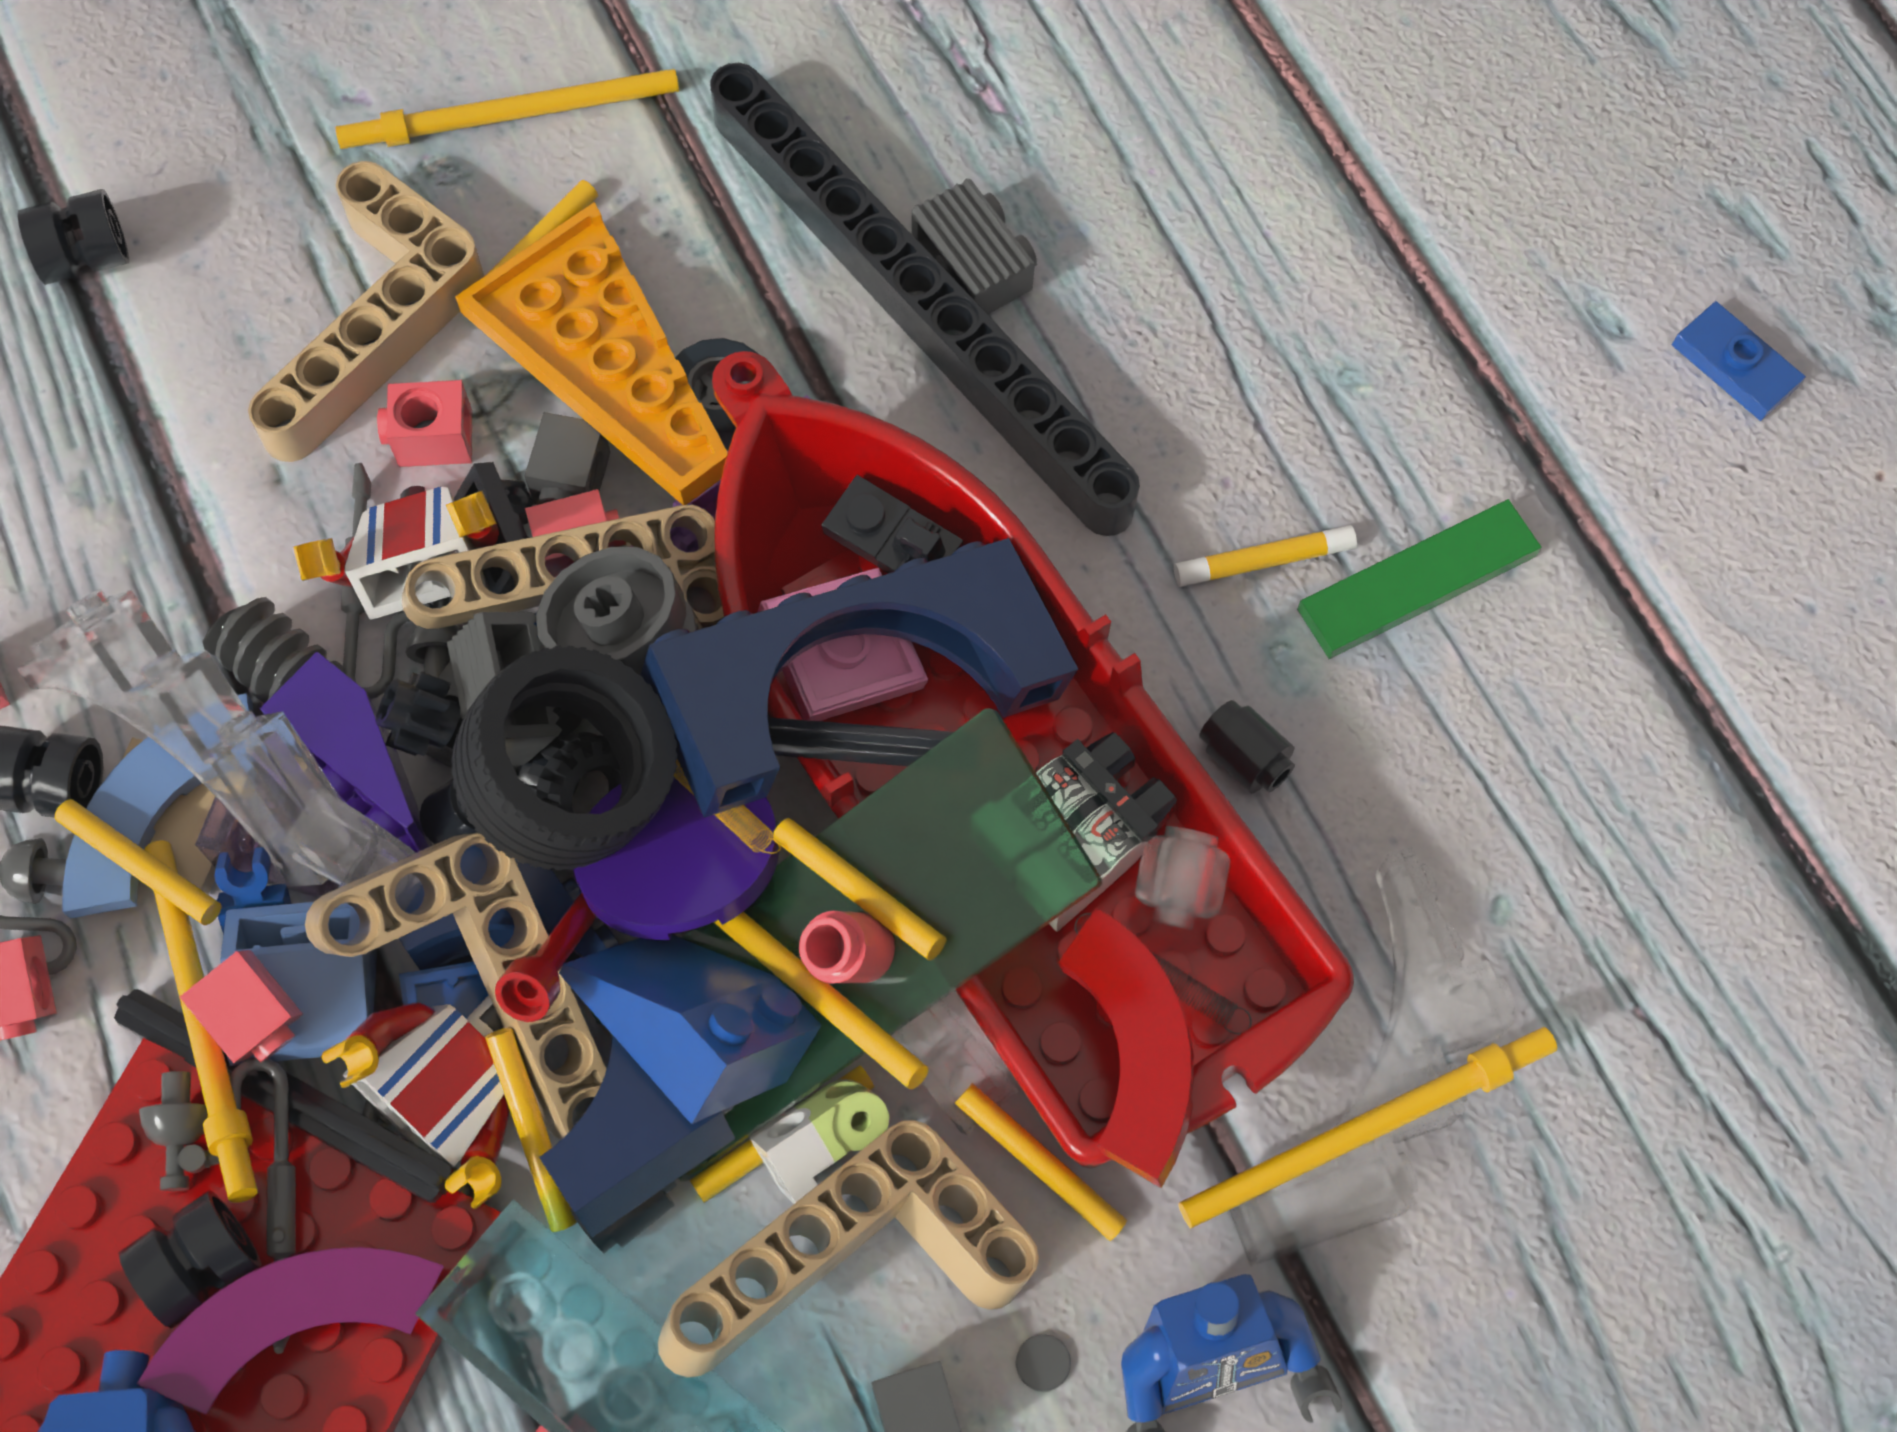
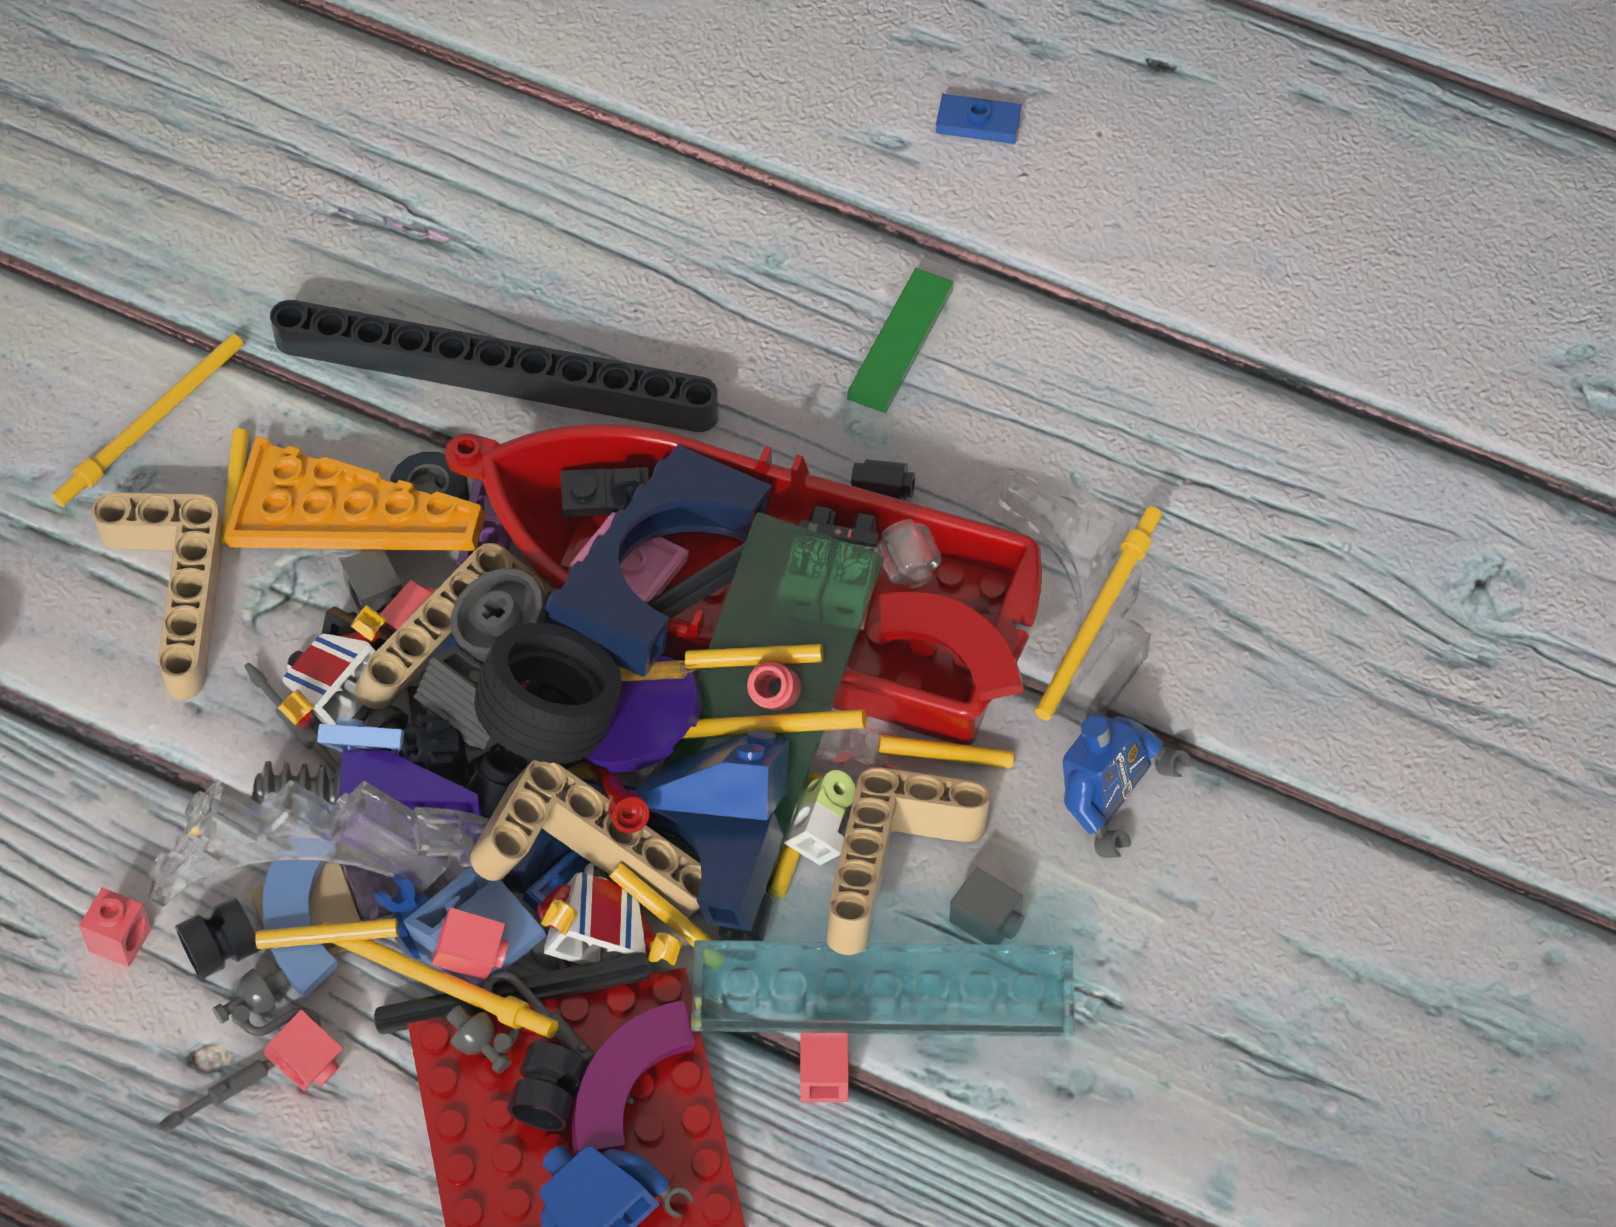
camera: 35 degrees left, 10 degrees down
(358, 655) = (353, 735): none -> light blue wing
(440, 443) = (274, 600): coral brick -> none
(975, 246) = (505, 315): dark grey brick -> none
(1043, 1362) = (1025, 848): dark grey piece -> none
(1265, 555) = (807, 382): yellow bar -> none

